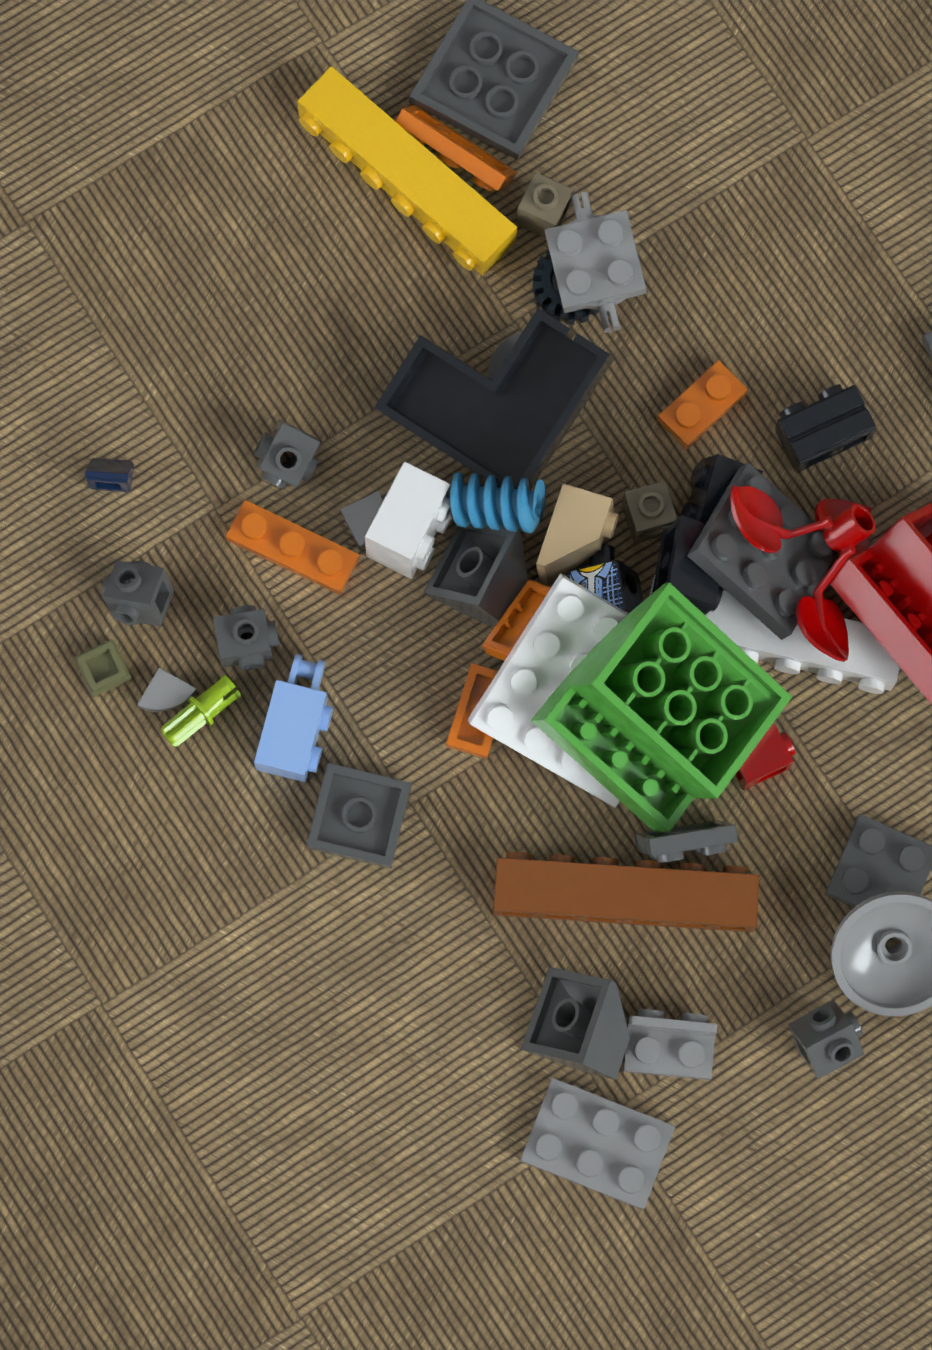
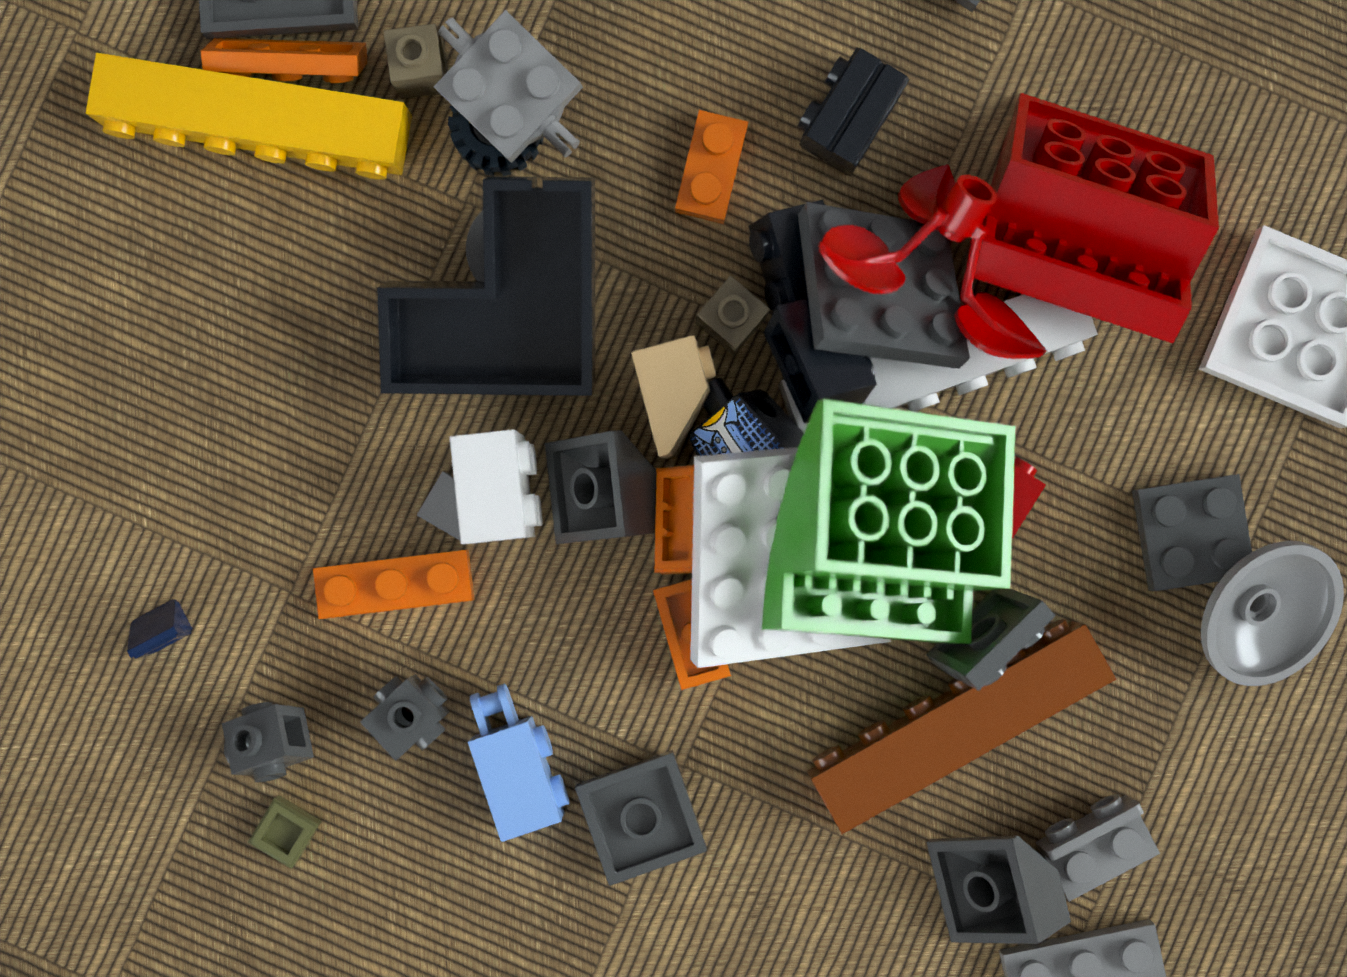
camera: 30 degrees left, 10 degrees up
(165, 693) = (364, 816): light grey tile -> none
(200, 711) = (412, 815): lime axle -> none
(286, 438) = (319, 480): dark grey brick -> none
(496, 505) = (576, 419): dark azure piece -> none
(827, 1038) = (1254, 742): dark grey brick -> none

